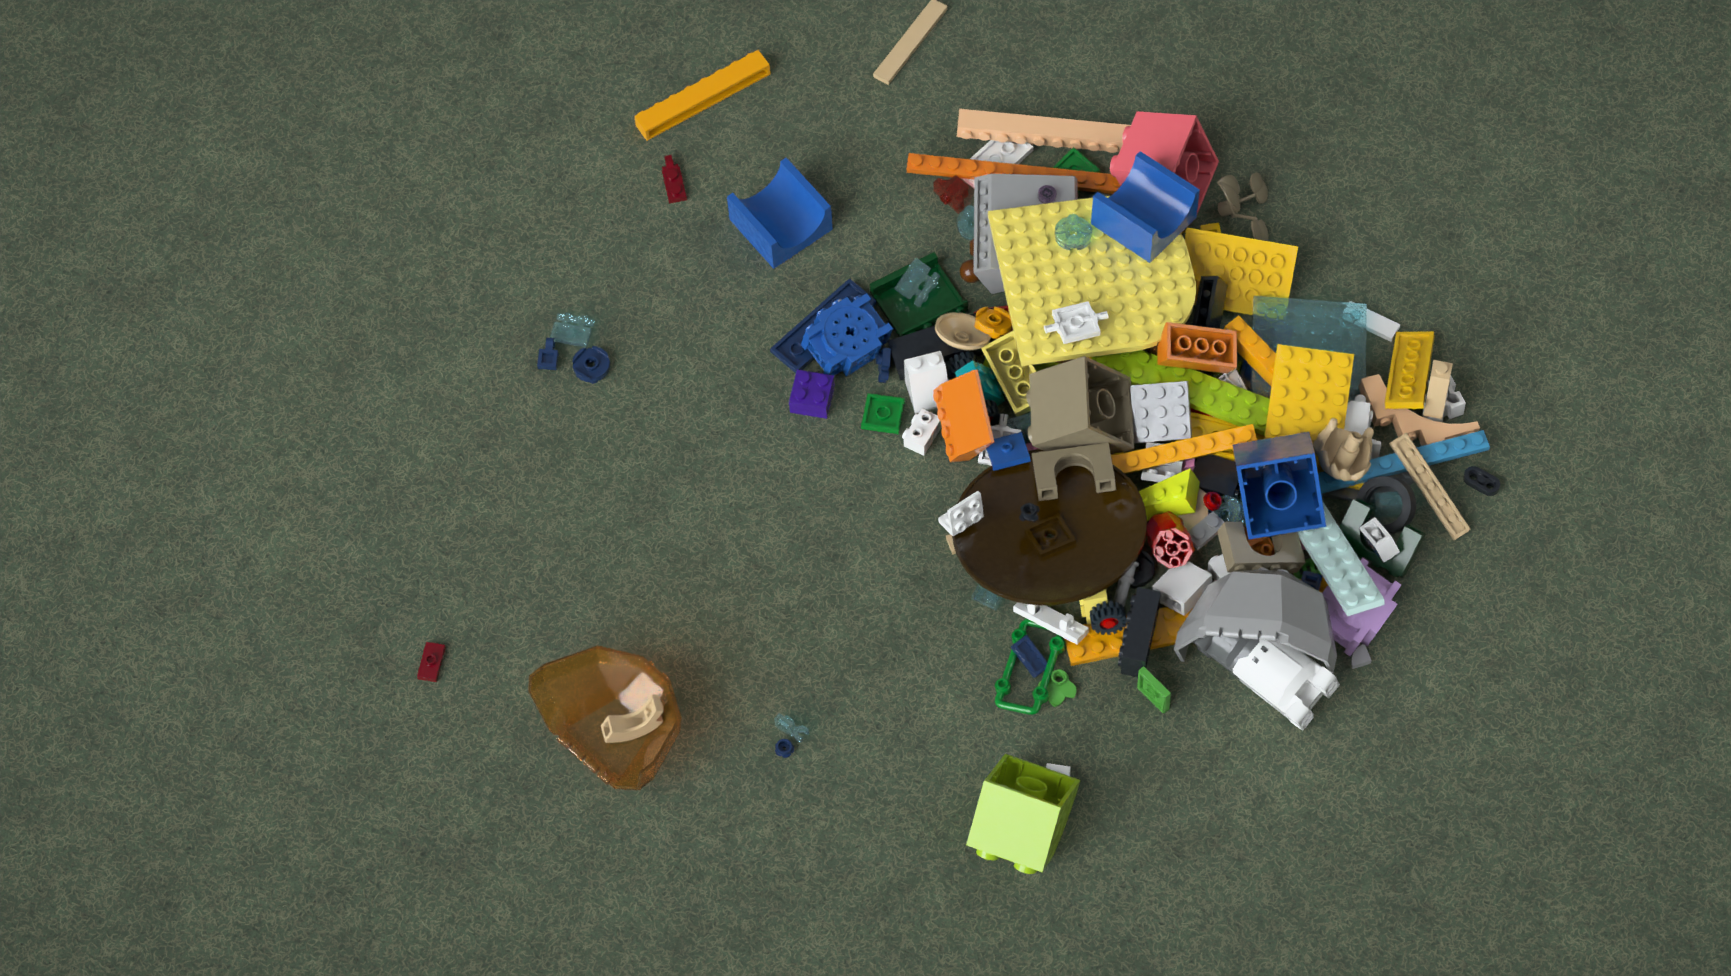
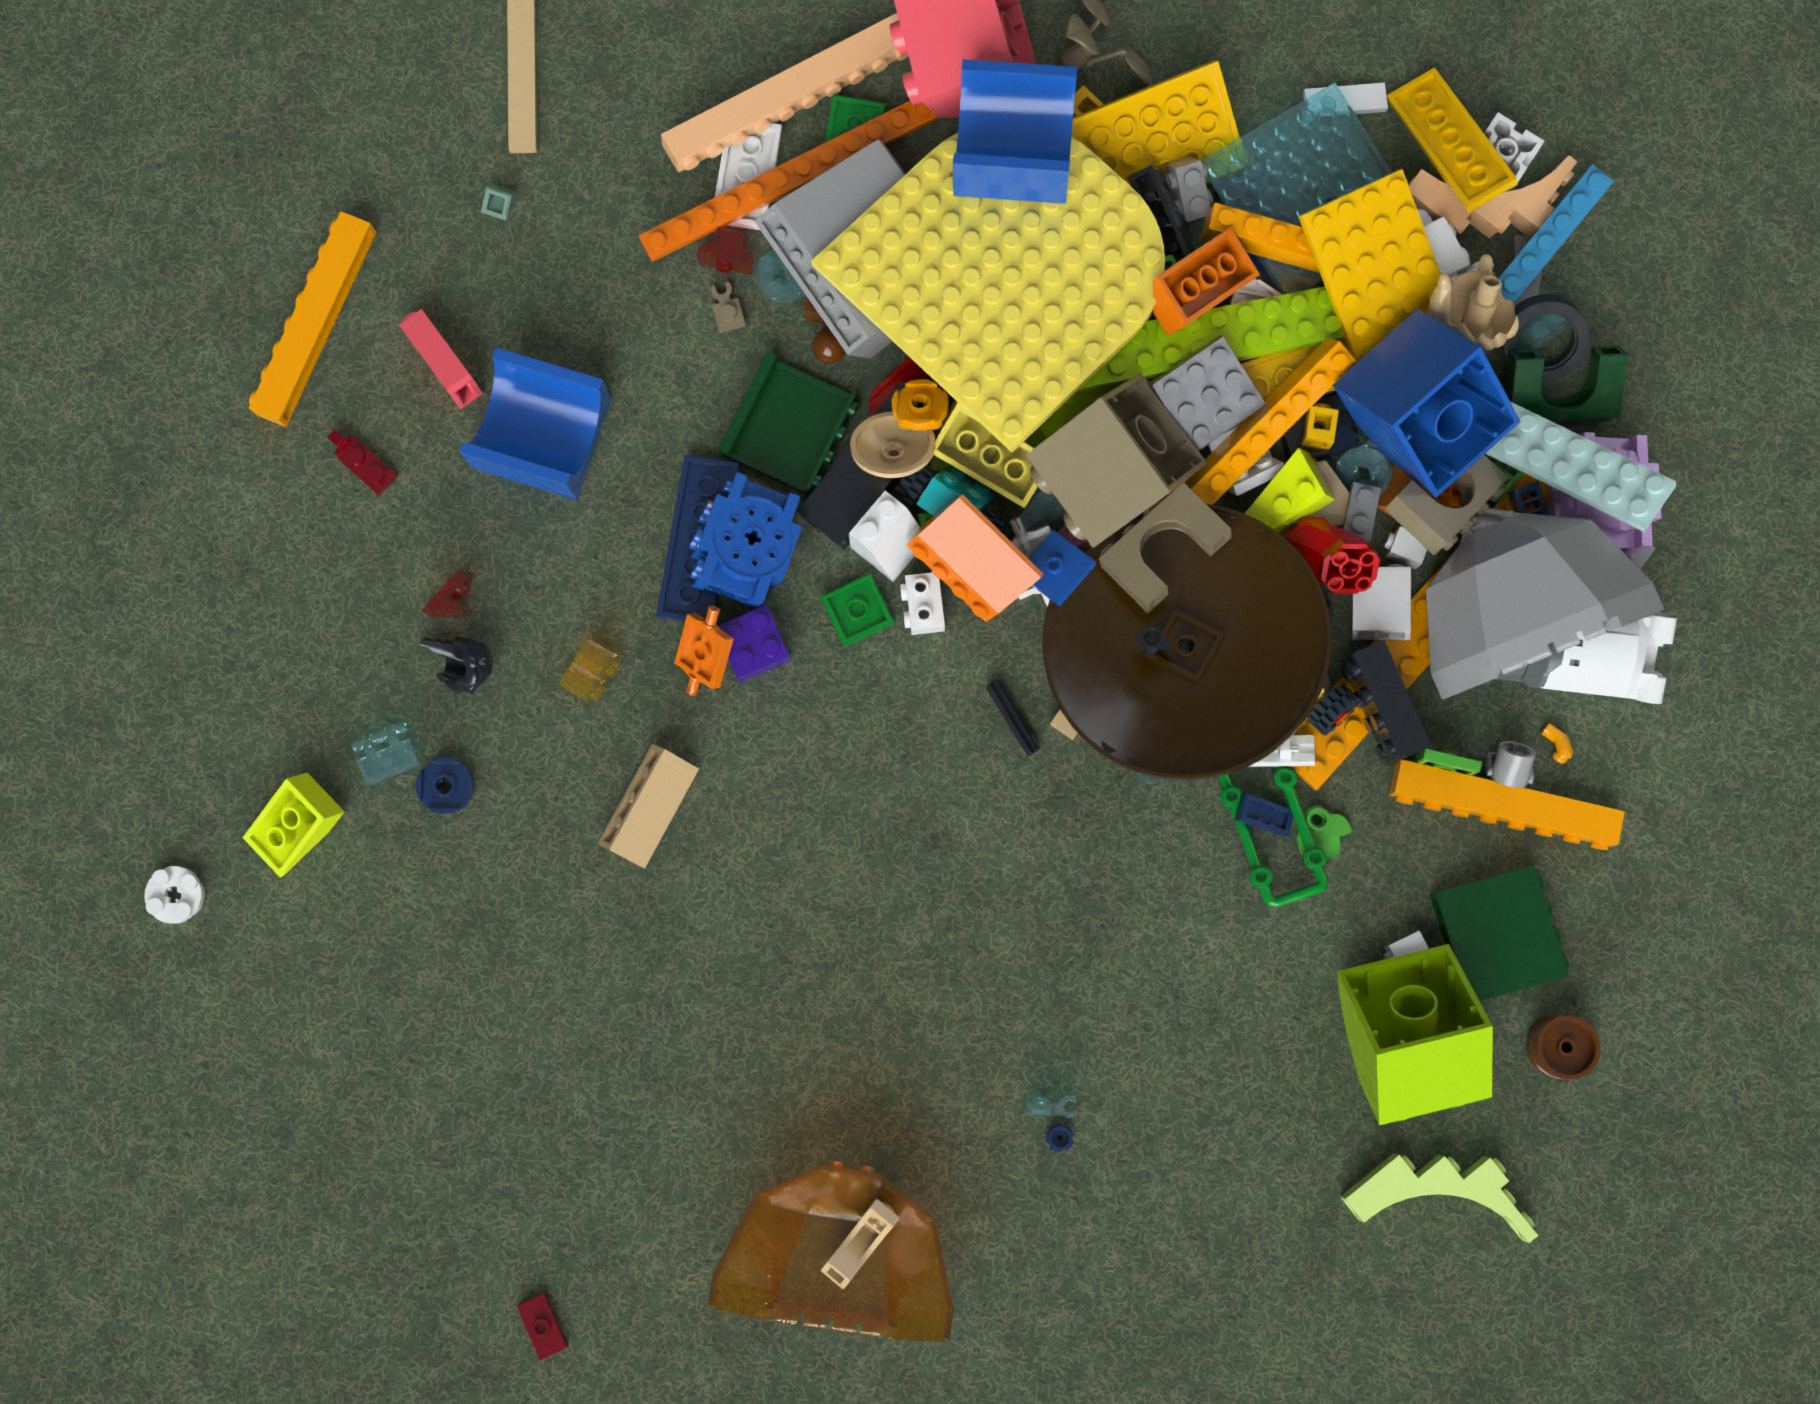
camera: 40 degrees left, 20 degrees up
(405, 321) = (157, 894): none -> white plate
(497, 332) = (293, 823): none -> neon yellow slope
(548, 357) = (384, 813): dark blue plate -> none
(652, 307) = (466, 662): none -> black hair
(662, 273) = (443, 603): none -> clear red slope
(691, 440) = (648, 806): none -> tan brick
(713, 354) = (589, 671): none -> clear yellow brick
(754, 154) = (440, 358): none -> coral slope
(781, 378) = (703, 650): none -> orange plate
(847, 96) = (498, 201): none -> sand green slope
(883, 362) = (812, 543): dark blue plate -> none
(913, 278) = (768, 406): clear light blue plate -> none
(927, 520) = (1013, 717): none -> black axle
(930, 224) = (727, 311): none -> dark tan plate
(957, 891) = (1395, 1182): none -> yellowish green arch
(963, 514) = (1071, 698): white bracket -> none
(1047, 194) = (865, 188): clear purple tile -> none
(1076, 224) = (942, 208): clear light blue plate -> none
(1076, 322) = (1044, 350): white plate -> none
(1106, 880) = (1567, 1063): none -> reddish brown wheel
(1118, 800) = (1501, 932): none -> dark green panel
(1175, 737) = (1515, 806): none -> light orange brick
(1193, 715) = (1511, 764): none -> light grey piece
(1208, 470) = (1327, 418): none -> yellow brick
(1212, 501) = (1341, 468): red plate -> none
(1234, 727) = (1562, 743): none -> light orange arm
(1238, 302) = (1189, 188): none -> light grey brick
(1379, 540) = (1578, 392): white brick -> none
(1429, 486) = (1577, 278): tan tile -> none
(1437, 389) = (1517, 142): tan slope -> none
(1482, 480) = (1617, 228): black plate -> none

